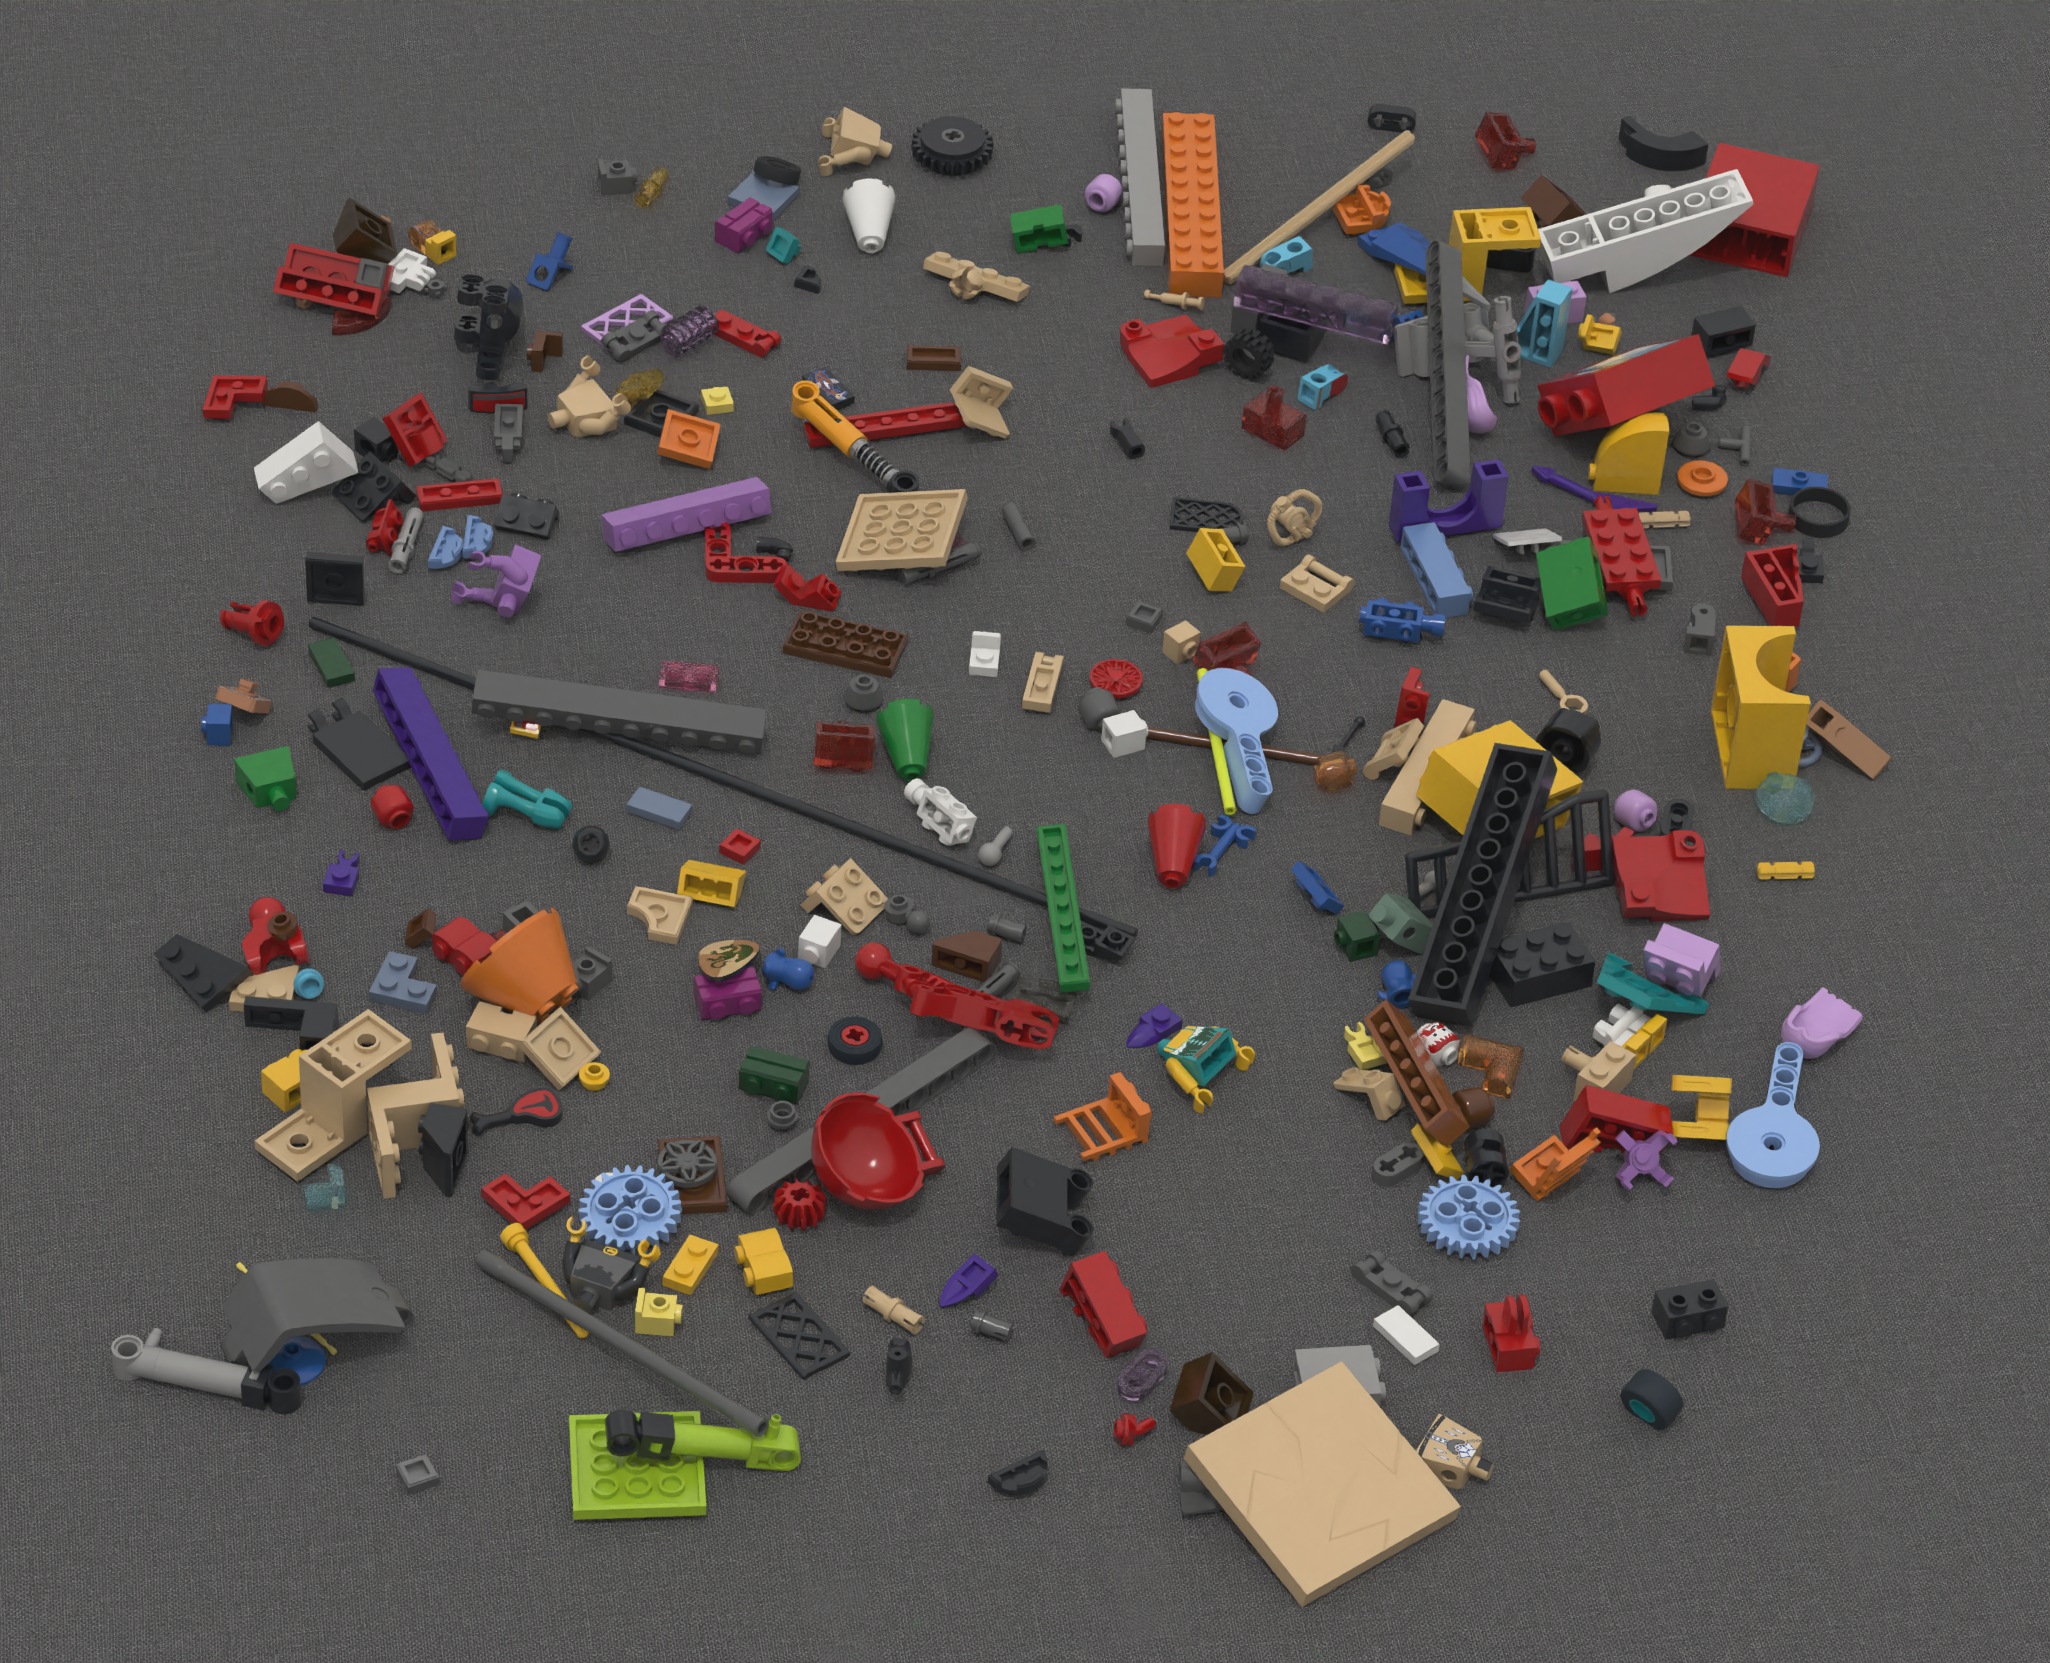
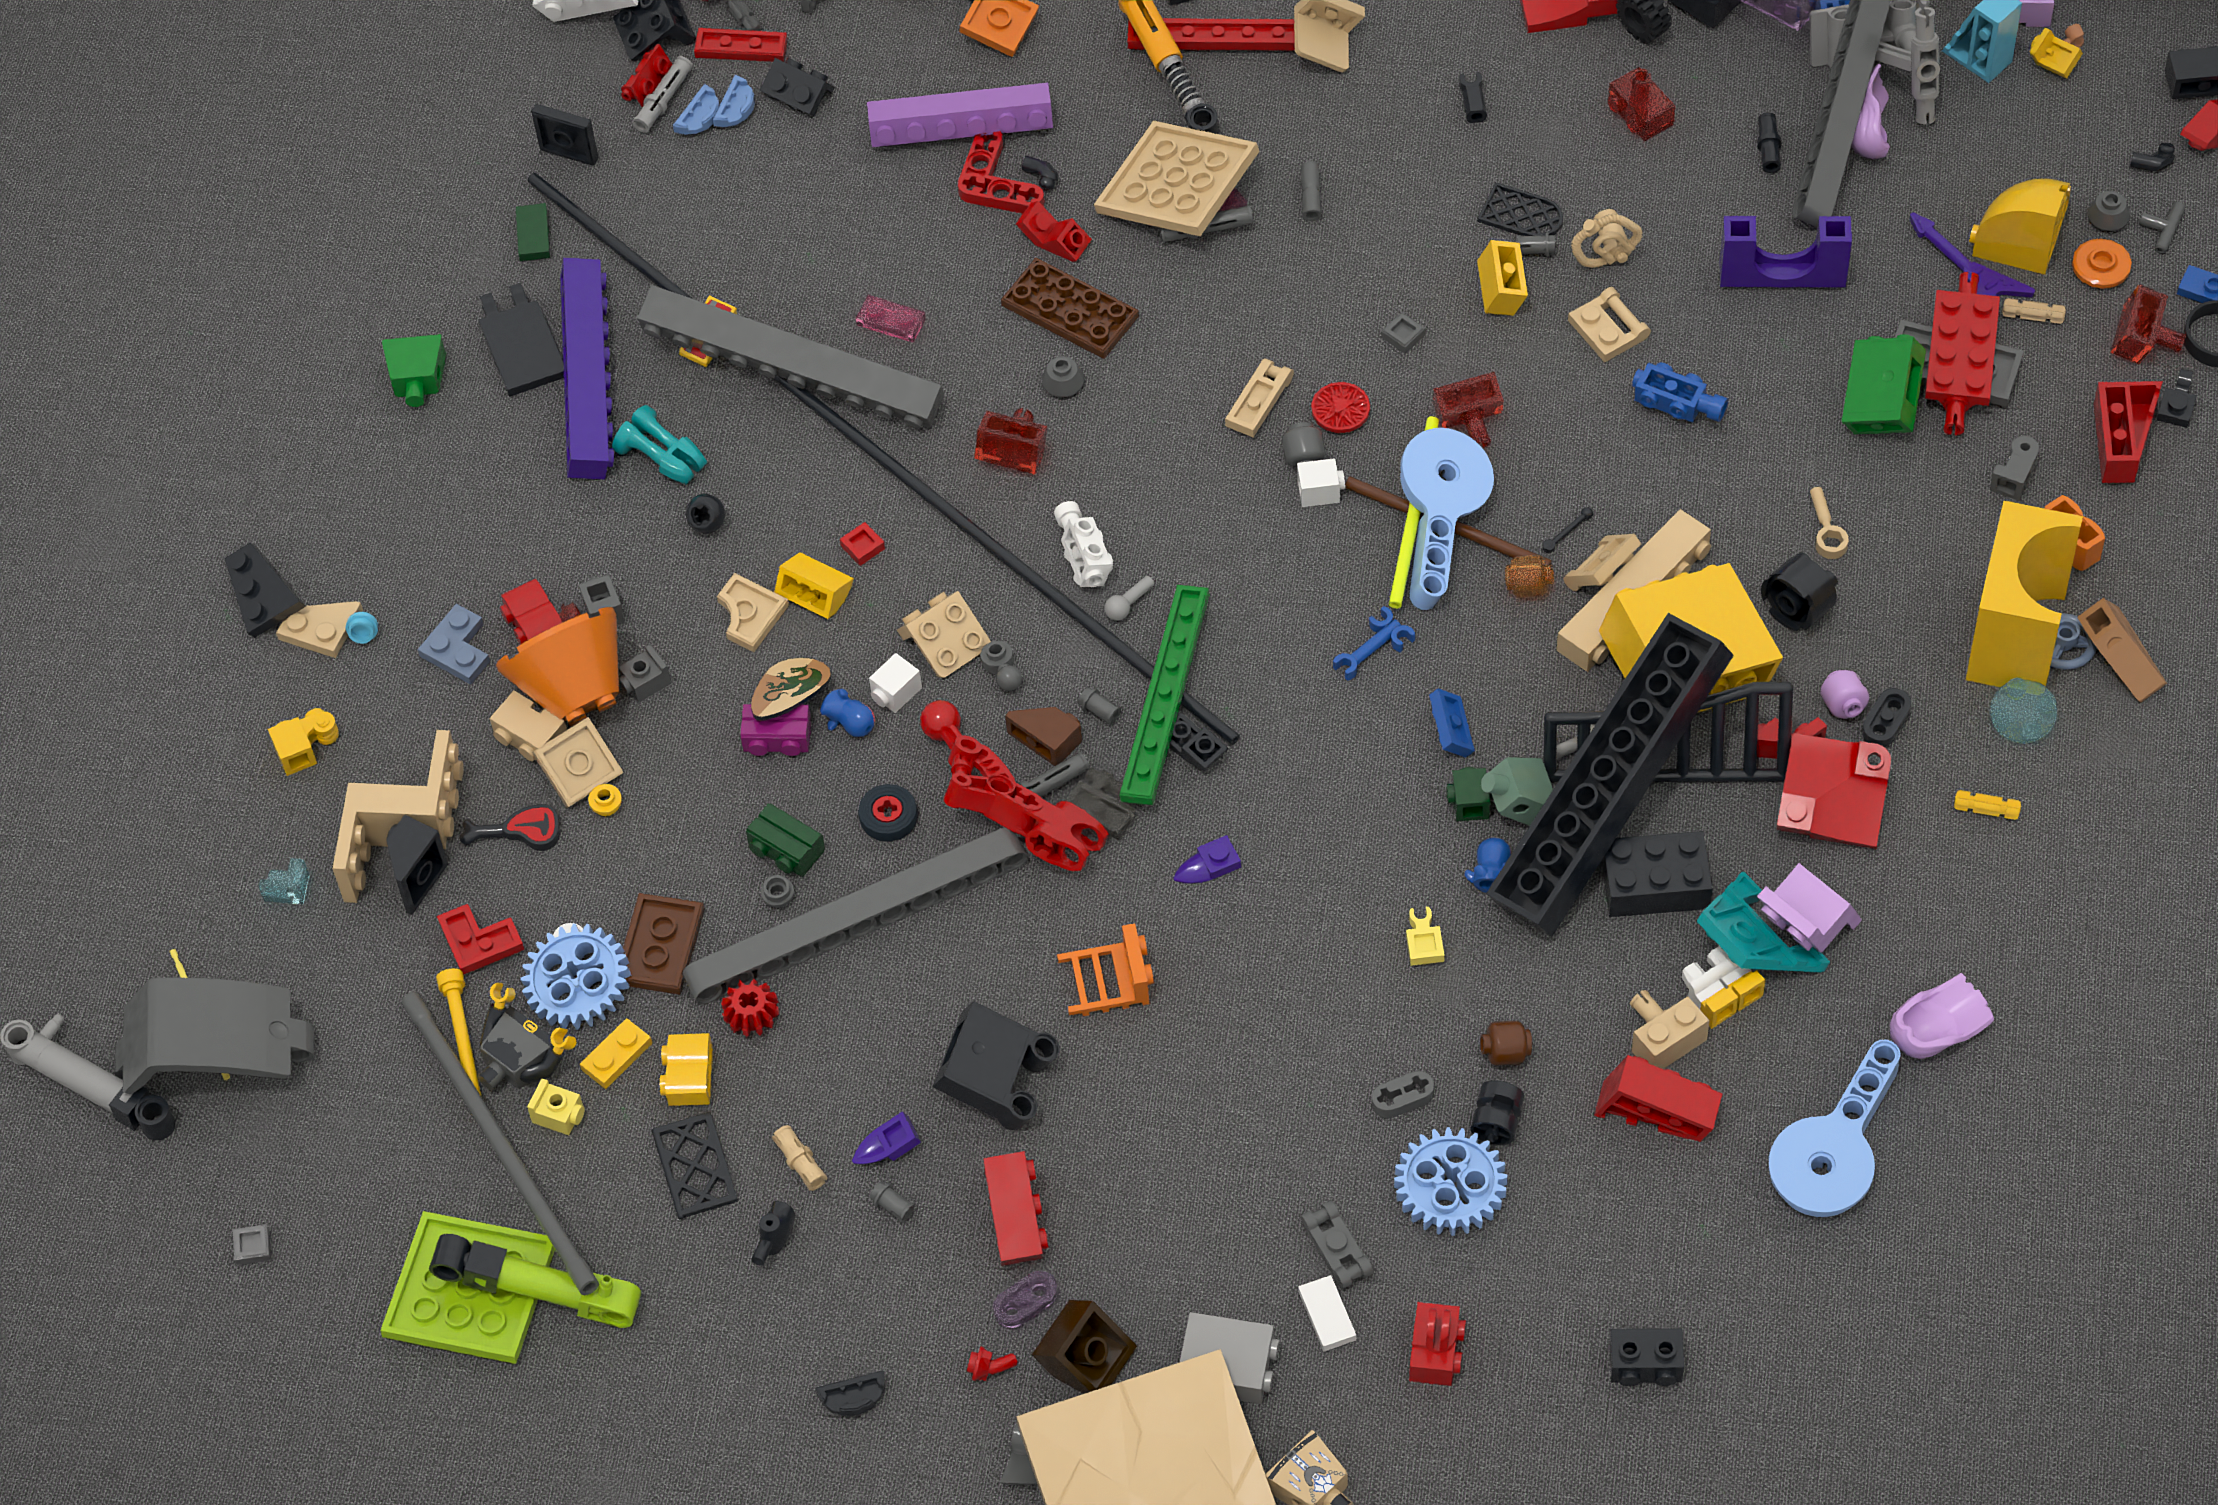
camera: 25 degrees right, 15 degrees up
(218, 724) = (389, 290): blue plate -> none
(244, 697) = (423, 264): nougat piece -> none
(261, 621) = (474, 173): red piece -> none
(261, 946) = (342, 565): red piece -> none
(282, 925) = (347, 560): reddish brown plate -> none
(302, 1356) = (183, 1090): blue dish -> none
(312, 1019) = (349, 687): black bracket -> none
(333, 1095) = (319, 761): tan bracket -> none
(342, 877) = (447, 500): dark purple plate -> none
(392, 806) = (522, 426): red head -> none
(420, 928) = (496, 582): reddish brown tile -> none
(512, 582) = (743, 173): medium lavender torso -> none
(659, 808) = (797, 479): sand blue tile -> none
(687, 1163) = (653, 932): dark grey wheel -> none
(869, 1154) = (833, 968): red windscreen -> none
(907, 736) = (1081, 446): green cone -> none
(985, 654) = (1210, 351): white bracket -> none
(1175, 841) = (1314, 639): red cone -> none
(1181, 642) = (1425, 375): tan plate -> none
(1198, 1056) = (1235, 914): torso -> none
(1320, 385) = (1713, 65): medium azure leg -> none
(1380, 1087) = (1412, 994): tan bracket -> none
(1412, 700) = (1640, 507): red bracket -> none
(1416, 1073) = (1456, 991): dark orange brick -> none
(1436, 570) = (1745, 334): medium blue brick -> none
(1437, 1153) = (1450, 1090): yellow plate -> none
(1439, 1043) = (1503, 952): white head -> none
(1497, 1058) = (1566, 988): clear orange brick -> none
(1508, 595) = (1811, 383): black brick -> none
(1525, 537) = (1864, 309): white piece -> none
(1552, 1164) = (1564, 1136): orange plate -> none
(1625, 386) = (2040, 138): red brick -> none
(1643, 1158) = (1668, 1153): medium lavender piece -> none
(1652, 1399) = (1555, 1463): black wheel -> none
(1710, 1109) = (1772, 1108): yellow piece -> none

